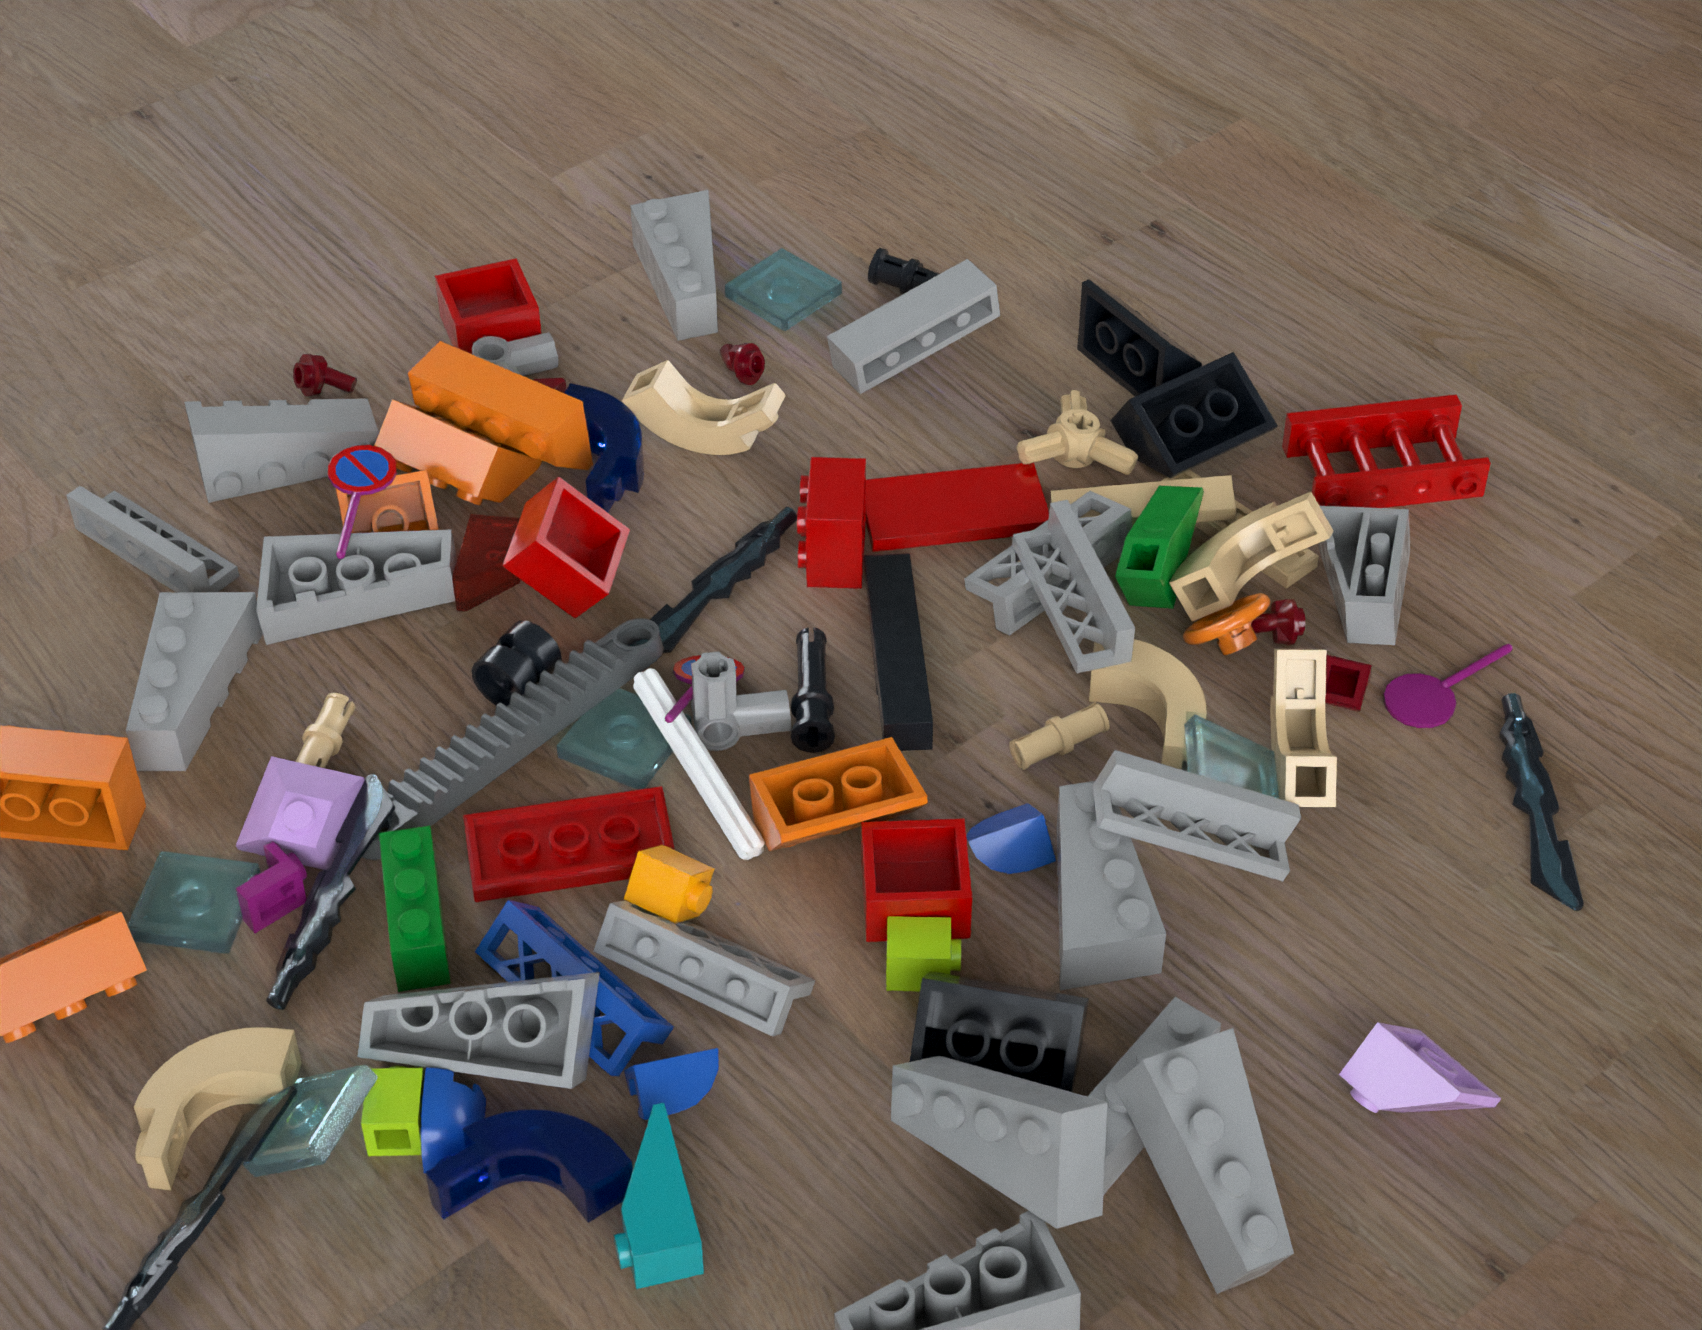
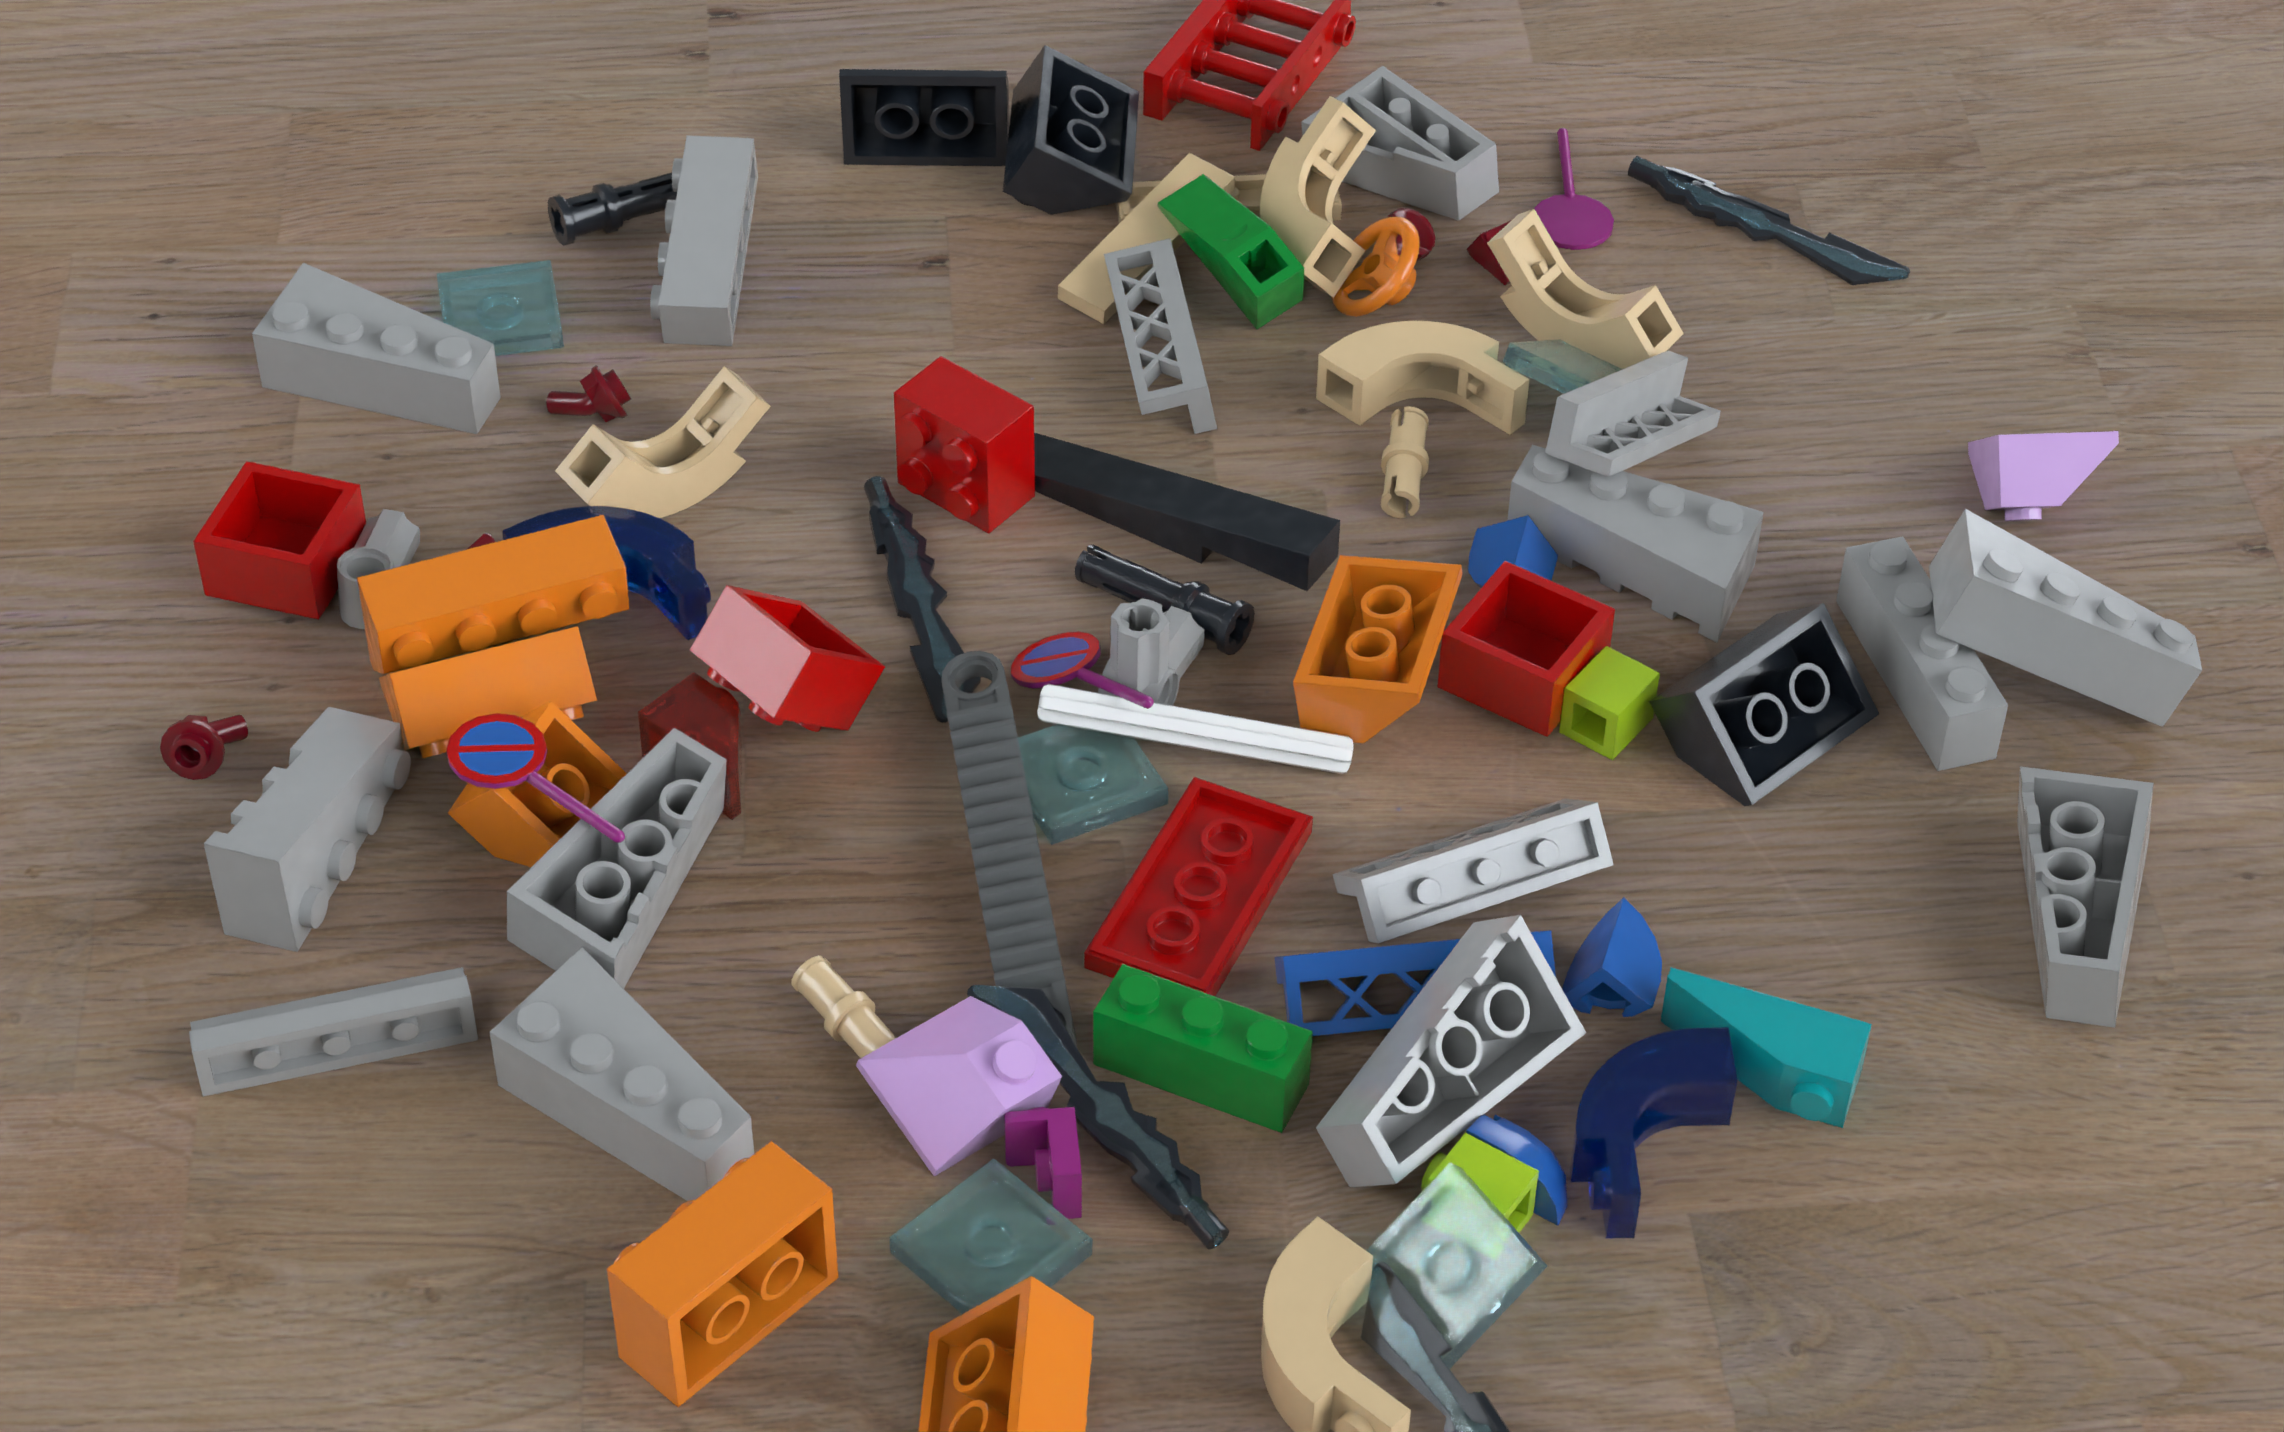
camera: 55 degrees left, 0 degrees up
(514, 661) = (908, 796): black wheel -> none
(670, 884) = (1360, 829): light orange brick -> none
(953, 506) = (1016, 338): red tile -> none
(1010, 1132) = (1921, 735): light grey wedge -> none
(1077, 440) = (1004, 224): tan bush -> none
(1090, 583) = (1267, 316): light grey fence -> none

